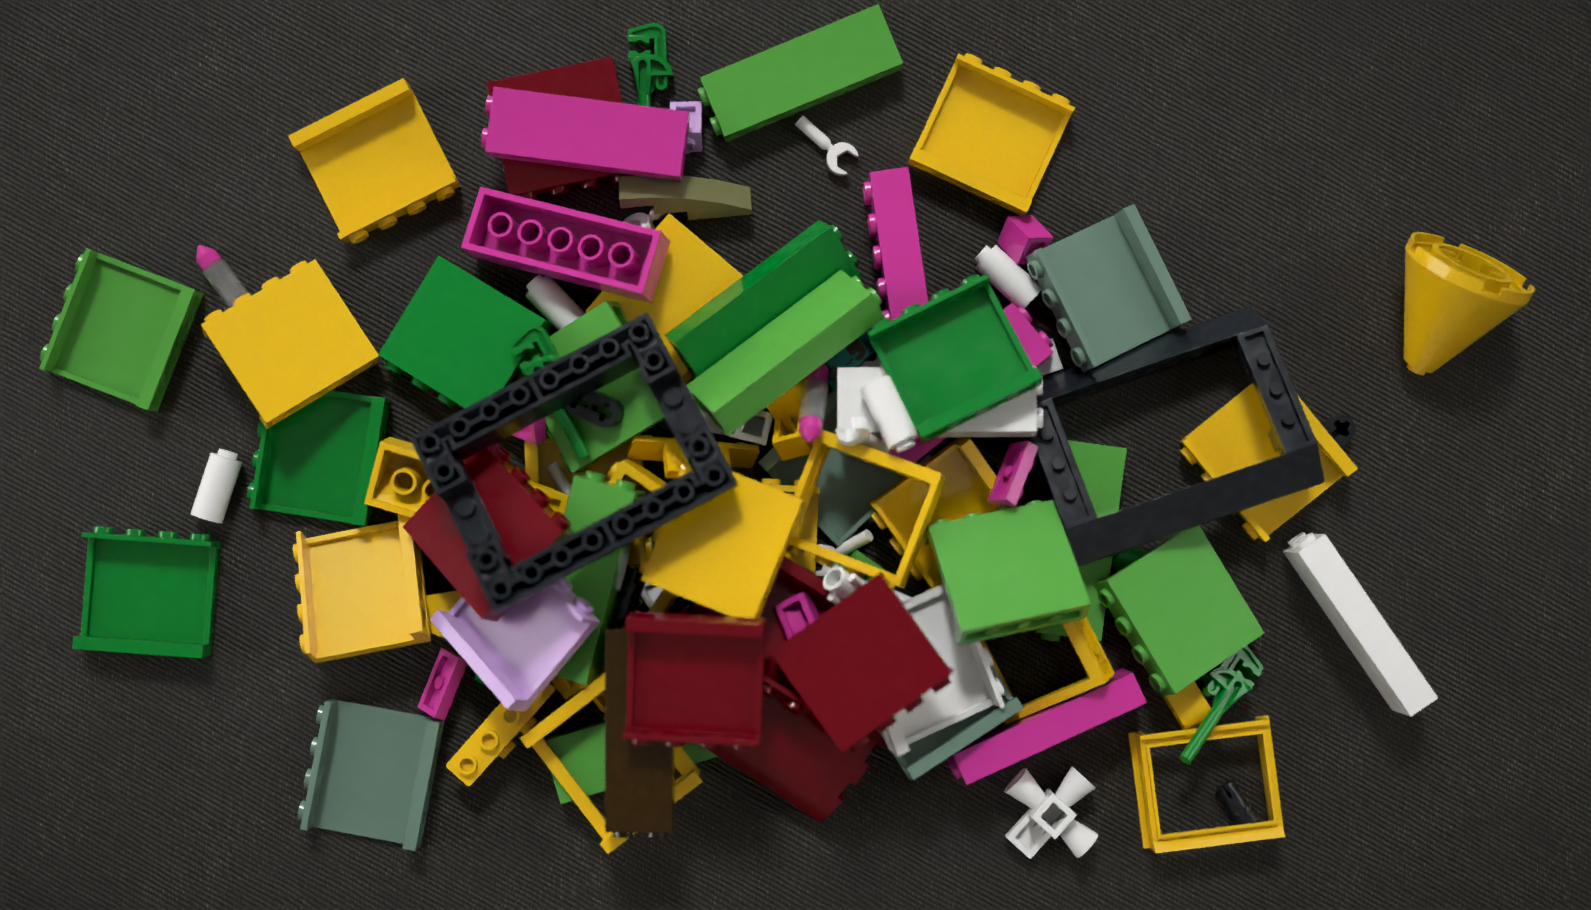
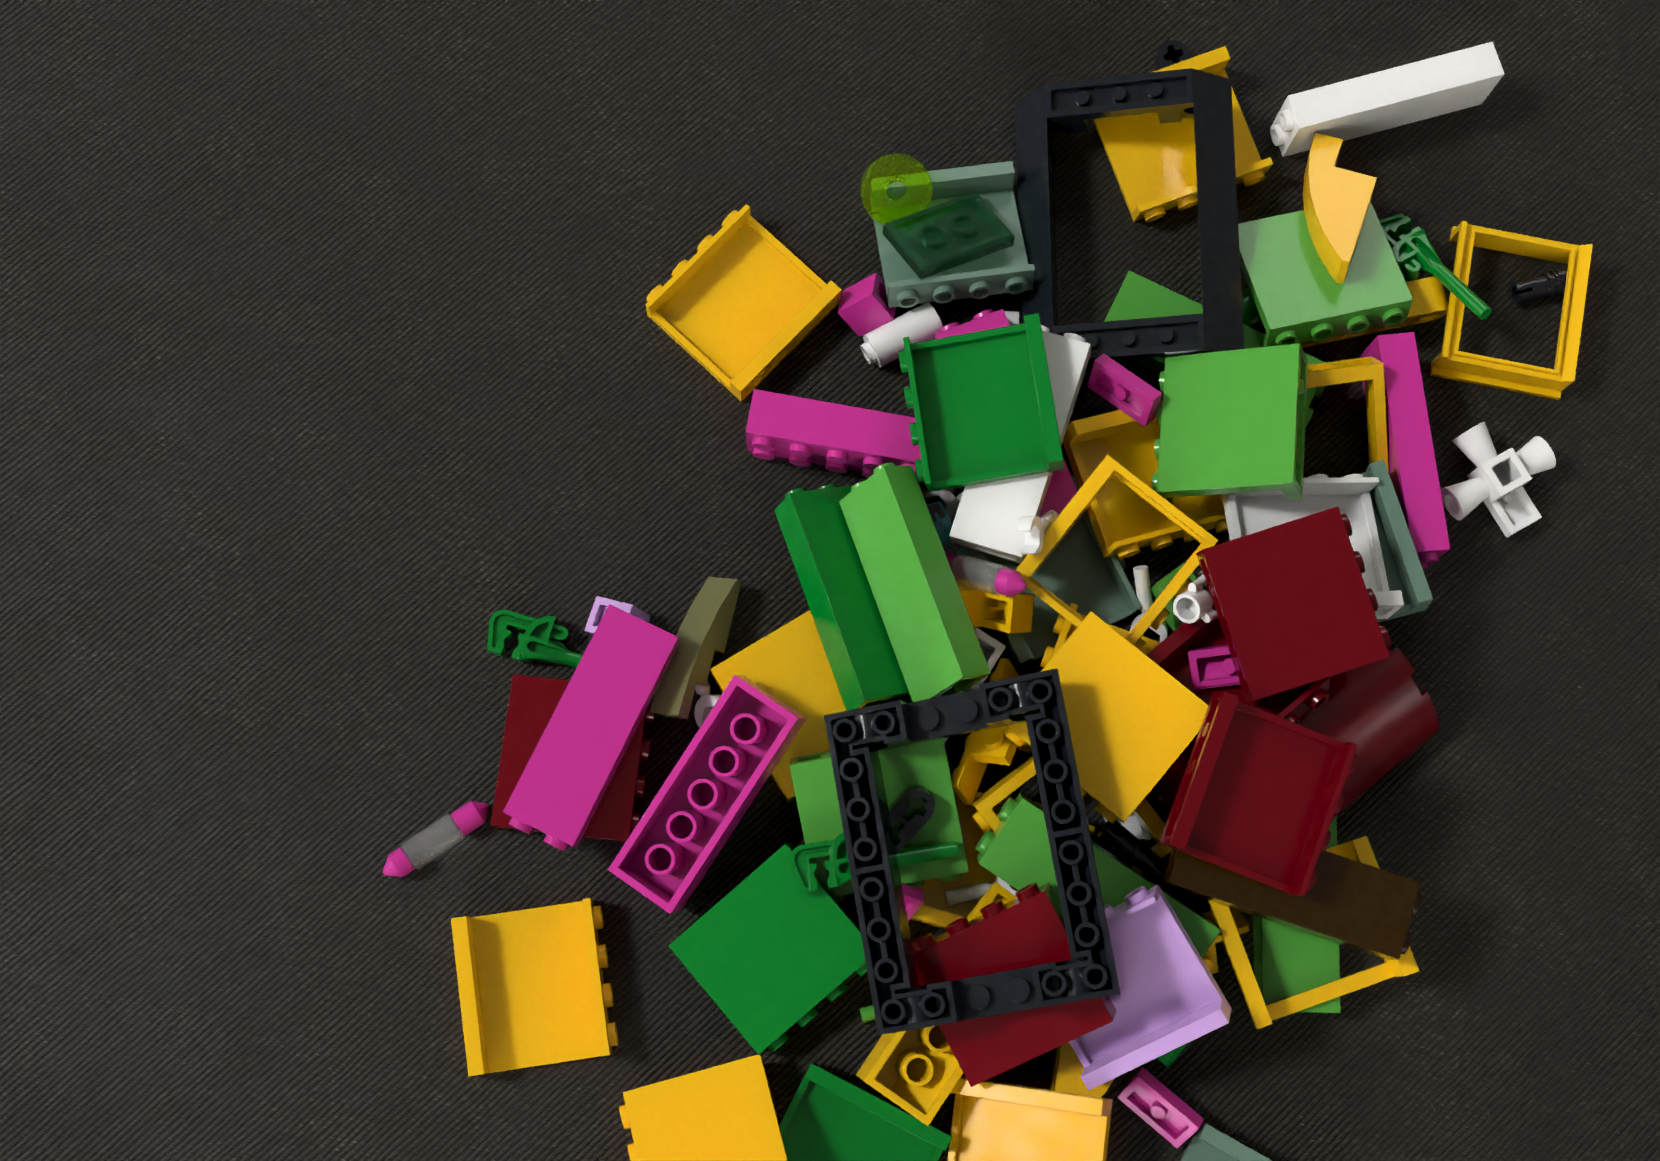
camera: 75 degrees left, 10 degrees down
(464, 44) = (435, 839): none -> piece
(494, 738) = (1246, 1073): yellow bracket -> none
(553, 302) = (767, 833): white brick -> none
(800, 73) = (604, 480): bright green brick -> none
(824, 143) = (689, 480): white piece -> none
(890, 414) = (1023, 490): white brick -> none
(1104, 285) = (948, 235): none -> clear green tile
(1146, 223) = (891, 169): none -> clear neon green tile
(1242, 605) = (1334, 205): none -> yellow slope

